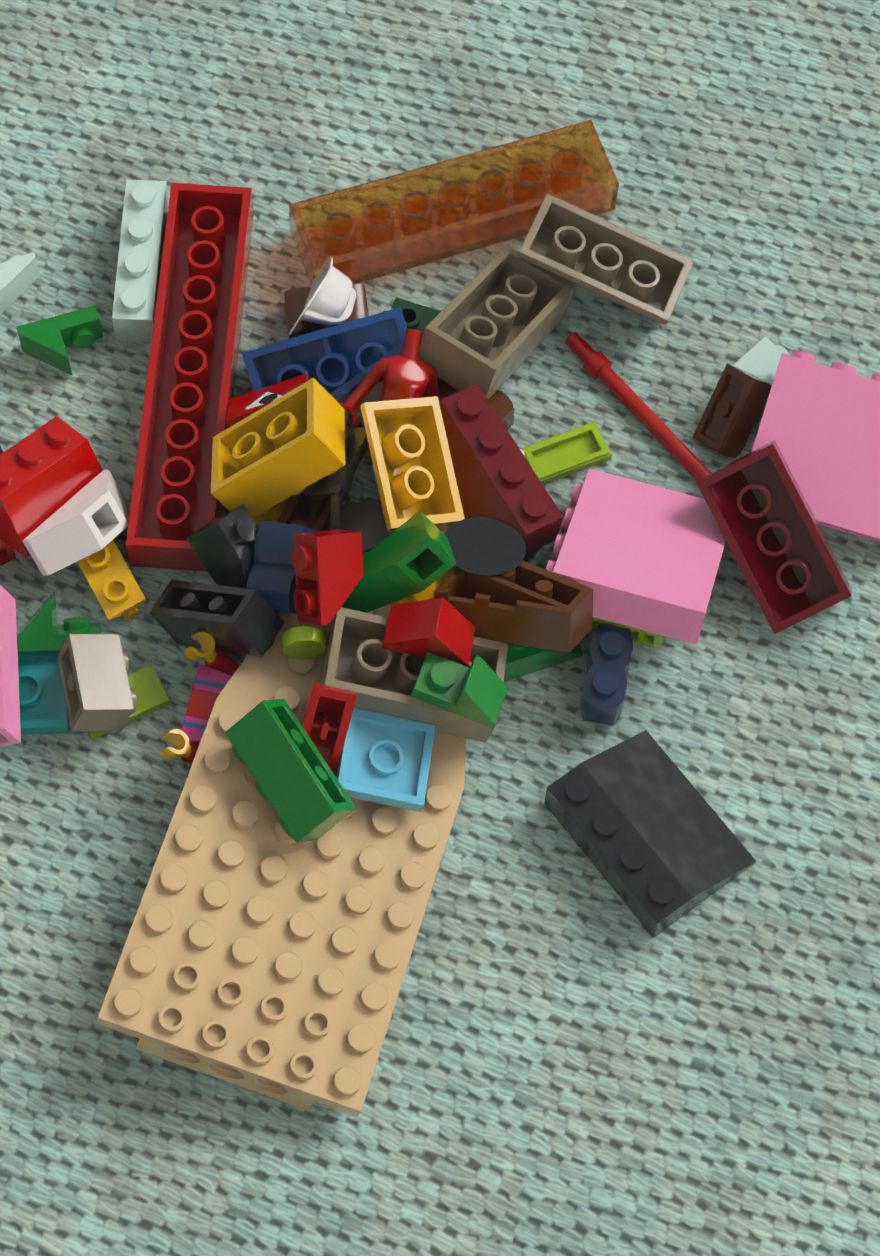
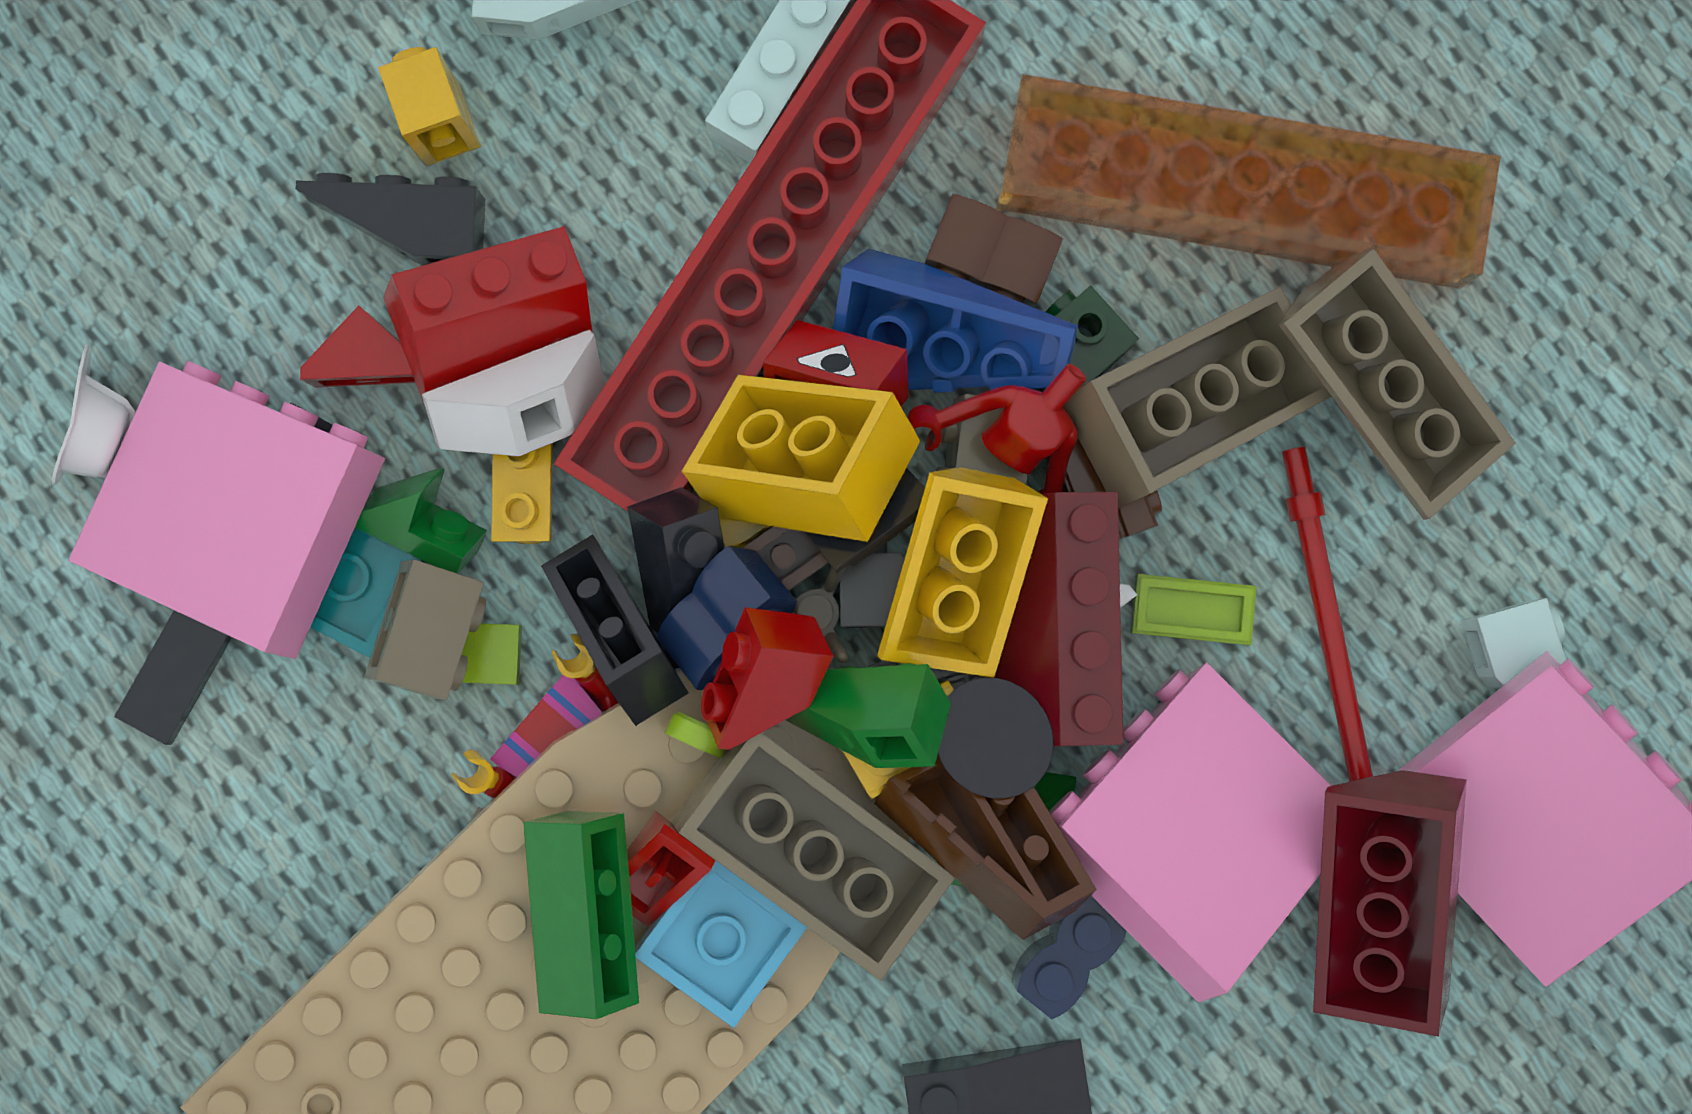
camera: 30 degrees right, 20 degrees up
(50, 337) = (624, 96): green slope -> none
(329, 298) = (993, 250): white piece -> none
(429, 627) = (853, 826): red slope -> none
(461, 690) = (852, 920): green slope -> none
(732, 411) = (1440, 675): reddish brown slope -> none

